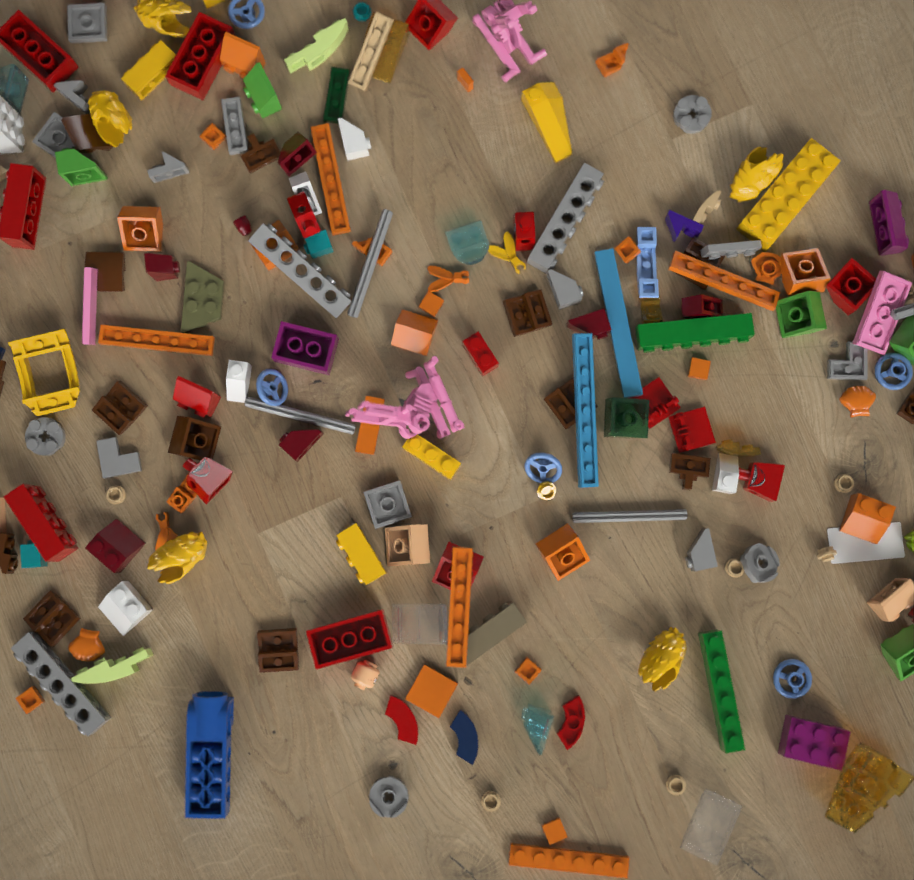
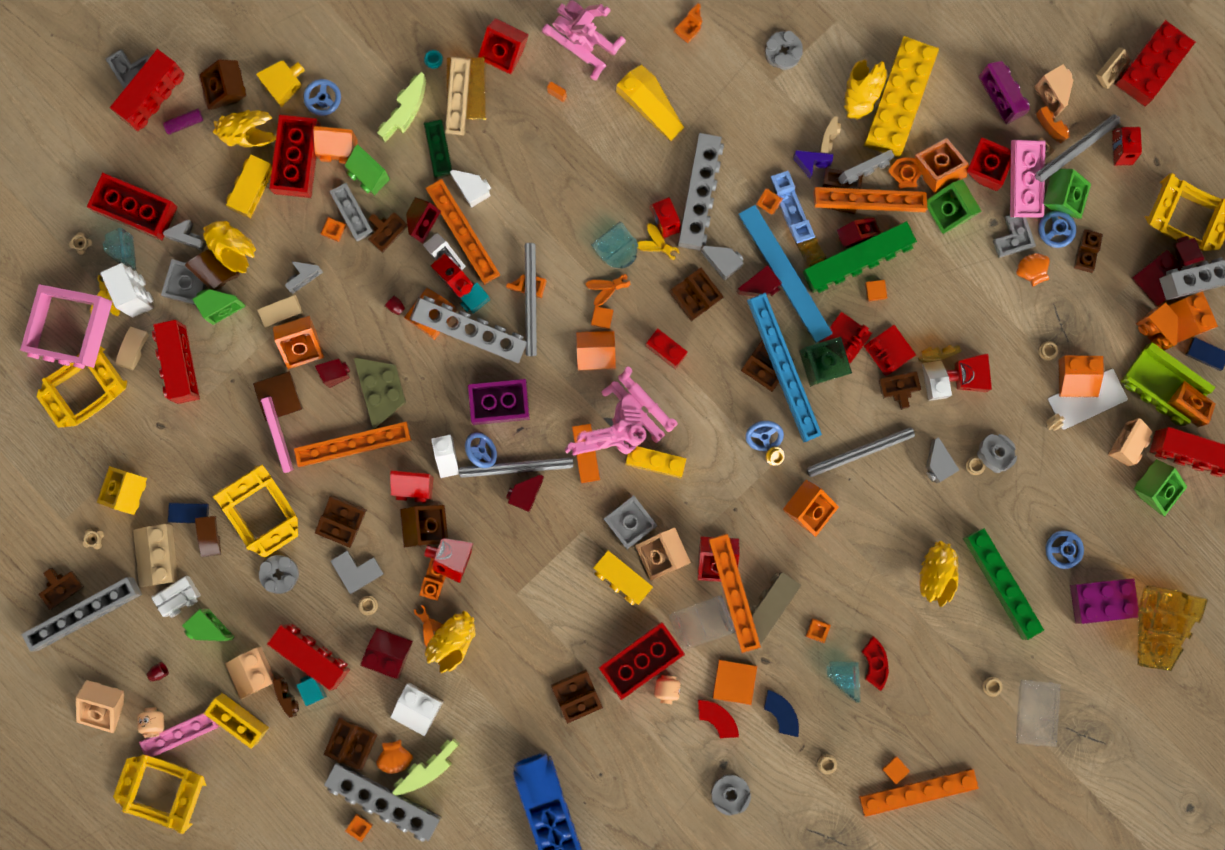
camera: 25 degrees left, 0 degrees up
(87, 23) = (170, 161): light grey plate -> none
(135, 193) = (280, 311): none -> tan slope

